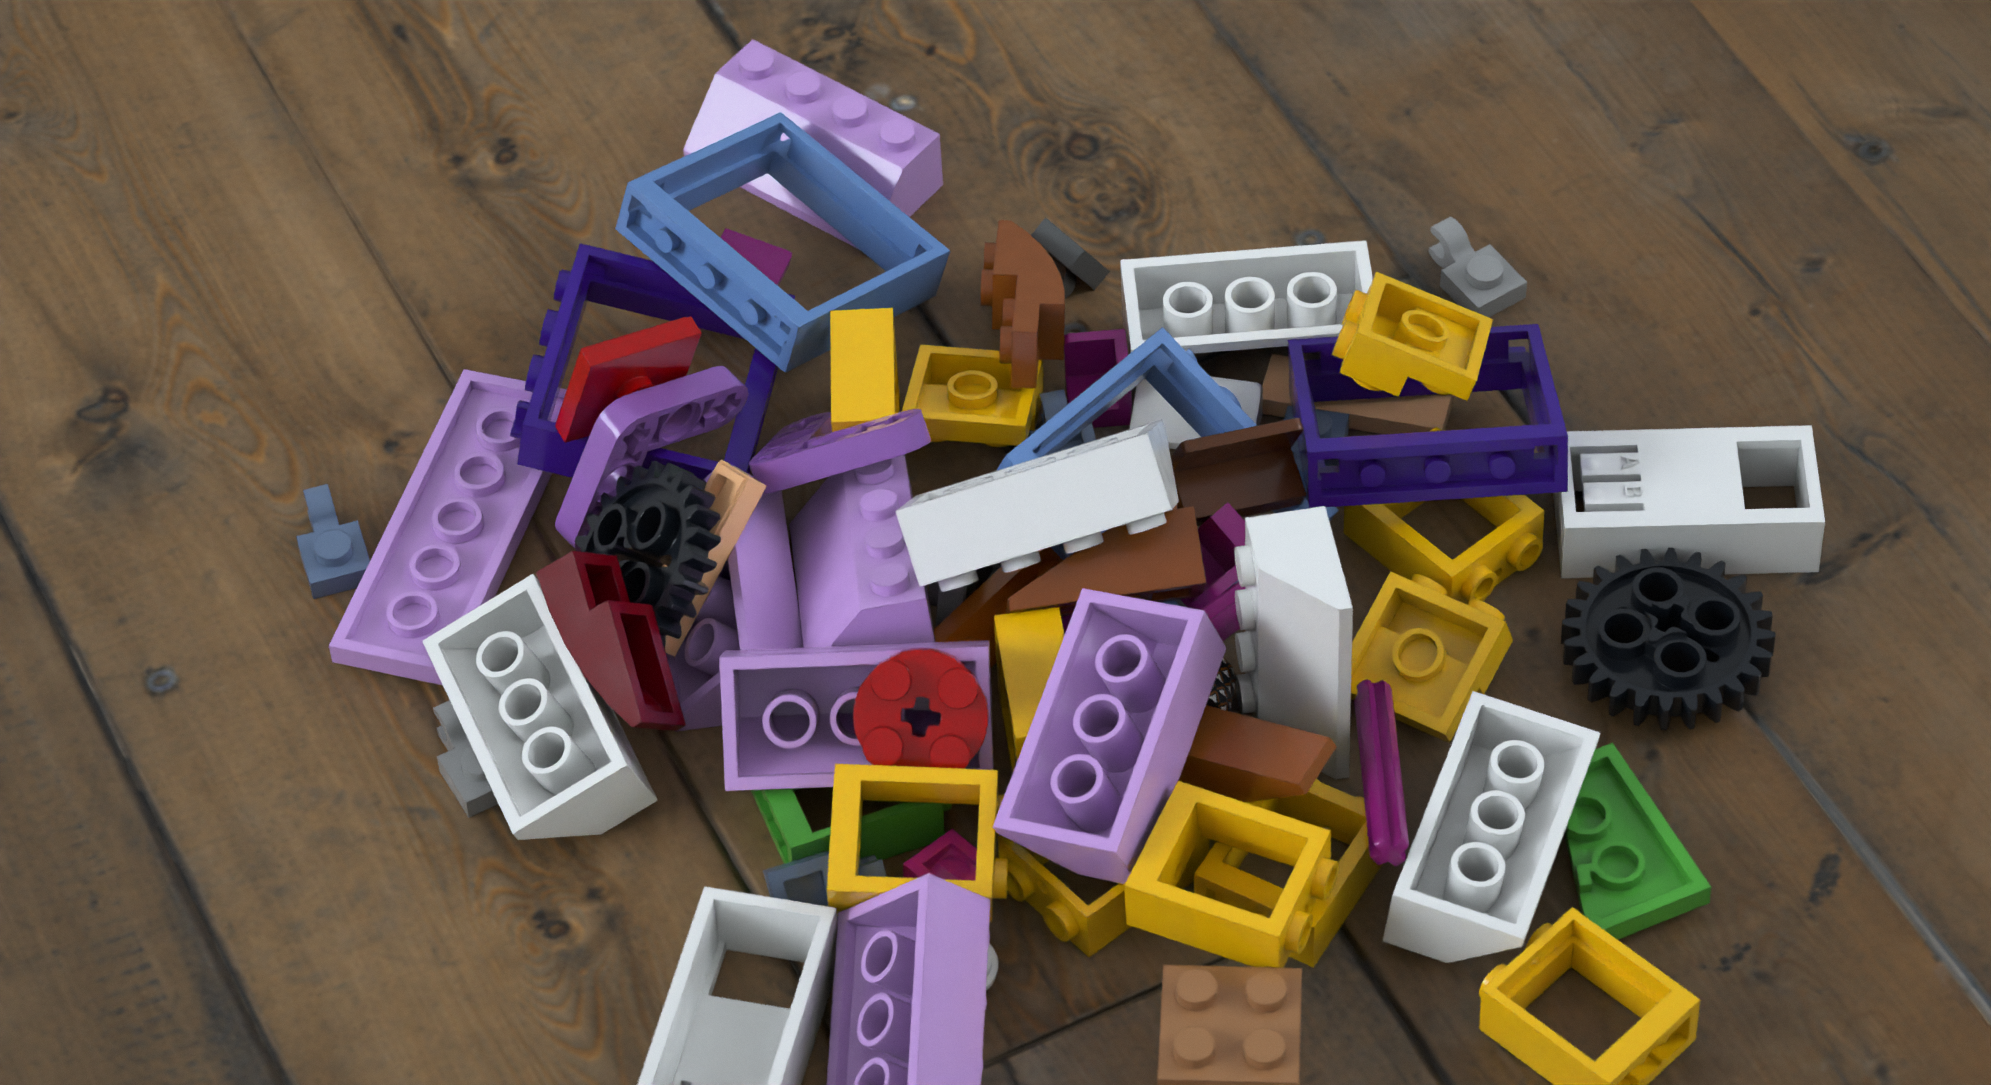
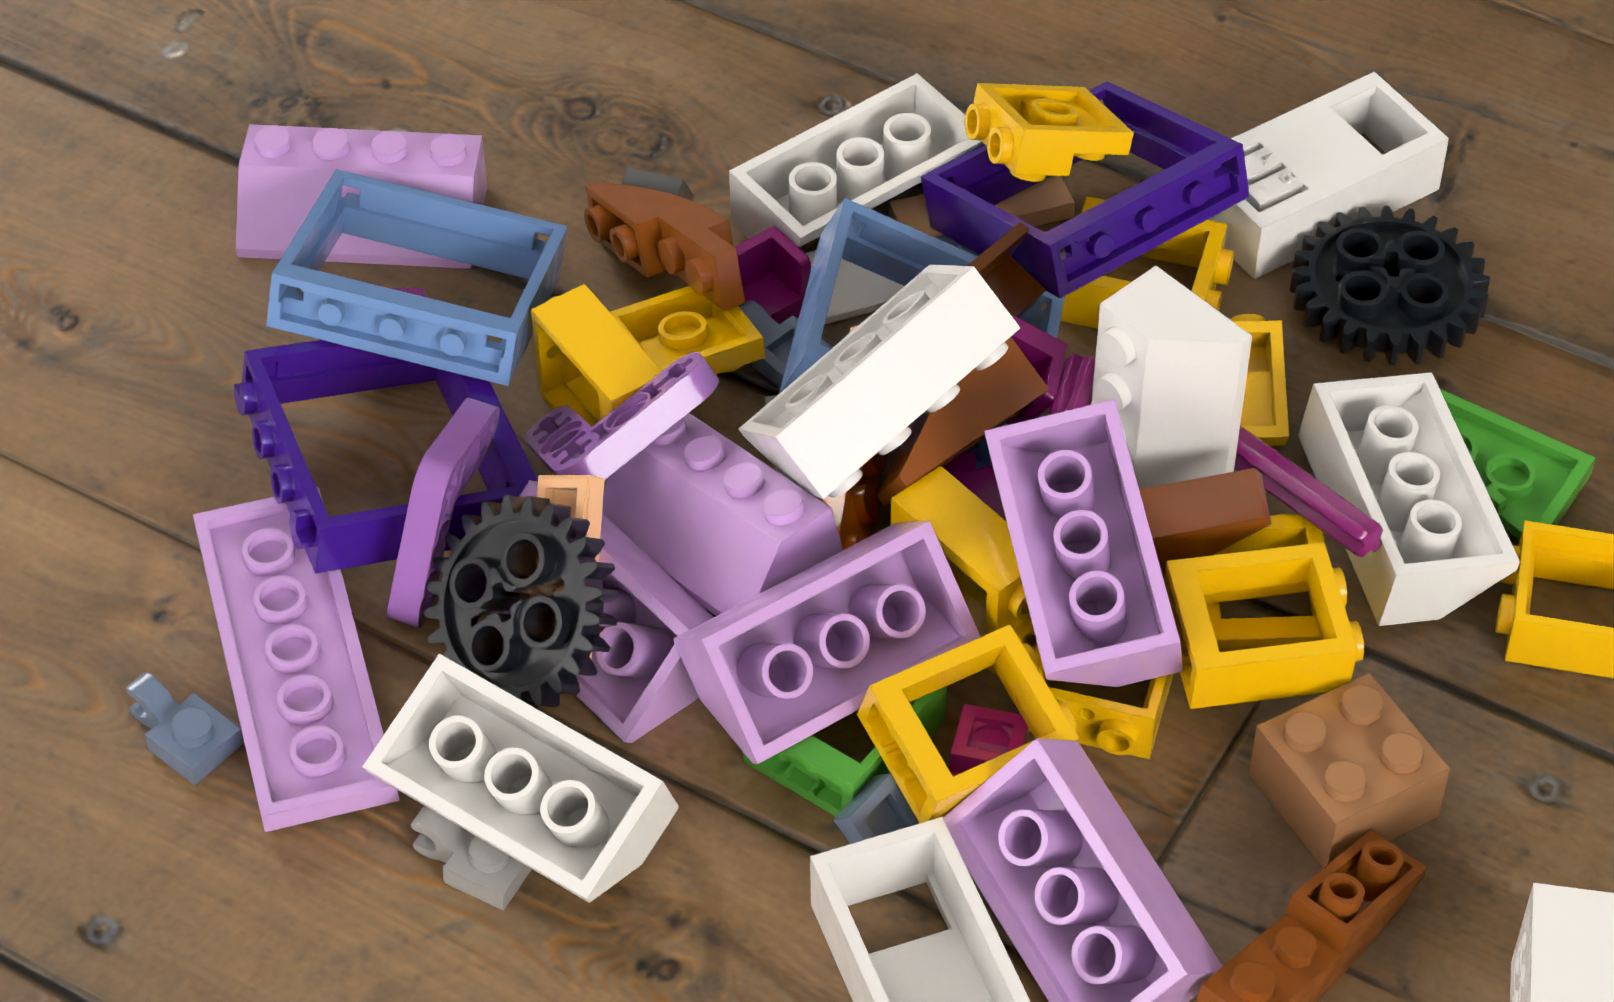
camera: 35 degrees left, 0 degrees up
(612, 639) = (559, 676): dark red slope -> none
(624, 367) = (403, 439): red plate -> none
(895, 686) = (874, 589): red plate -> none
(1471, 278) = (996, 66): light grey plate -> none

